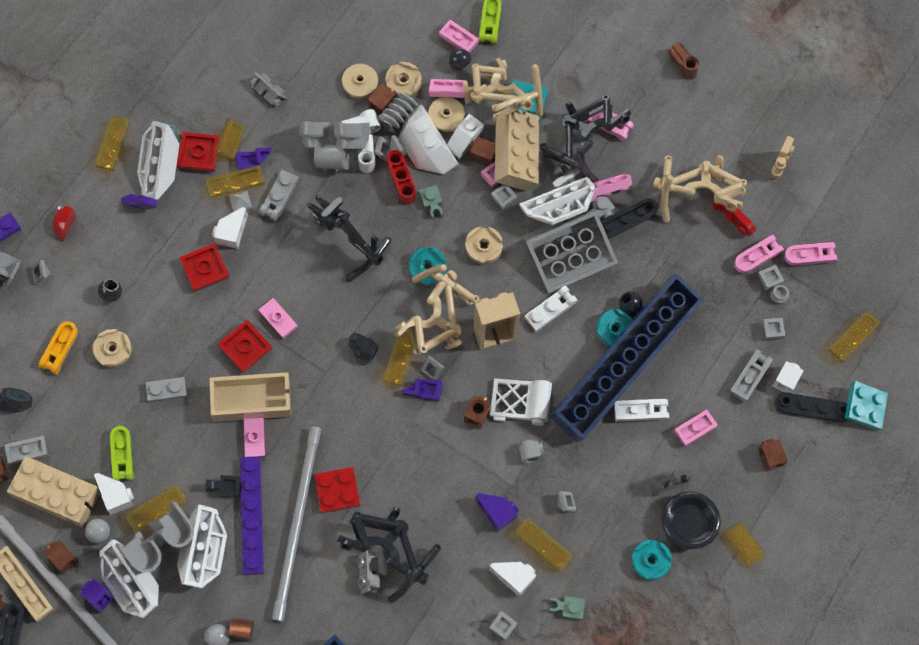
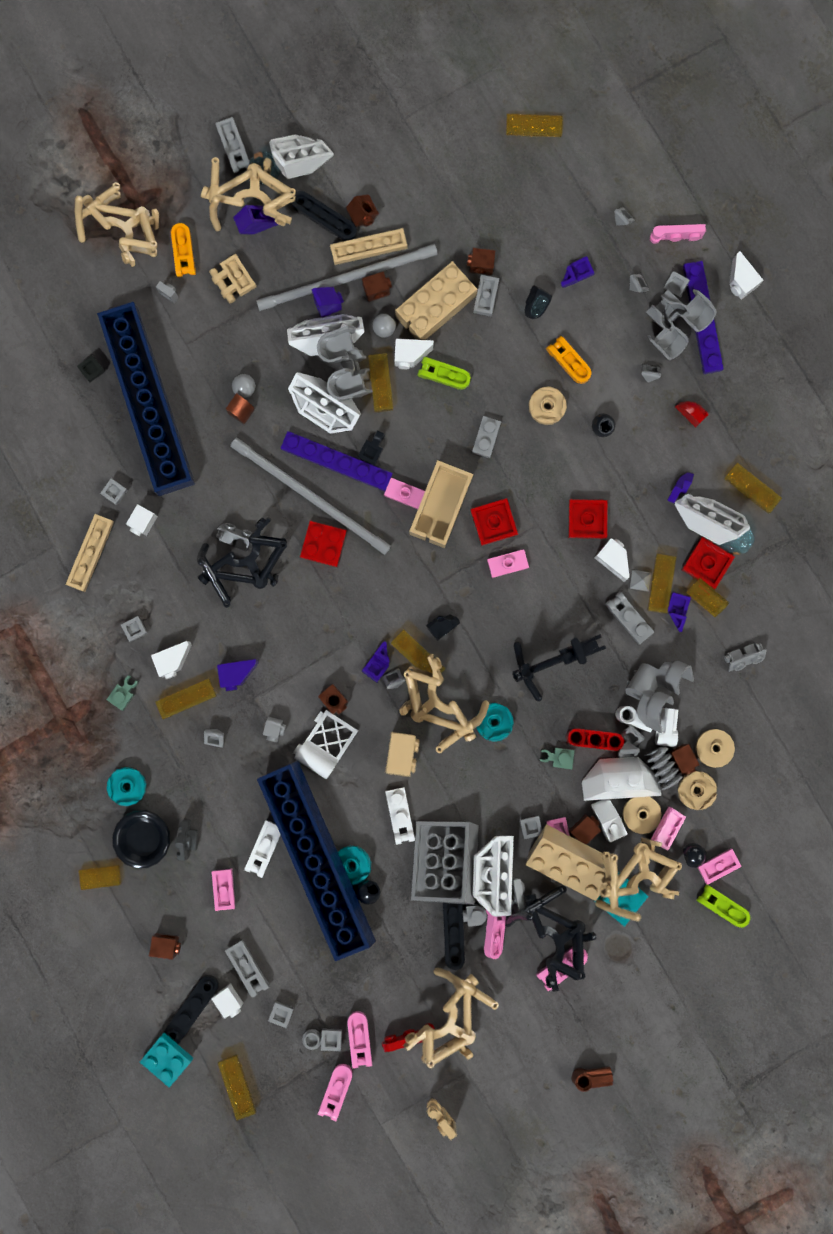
camera: 115 degrees right, 15 degrees up
(483, 235) = (481, 778): tan plate -> none

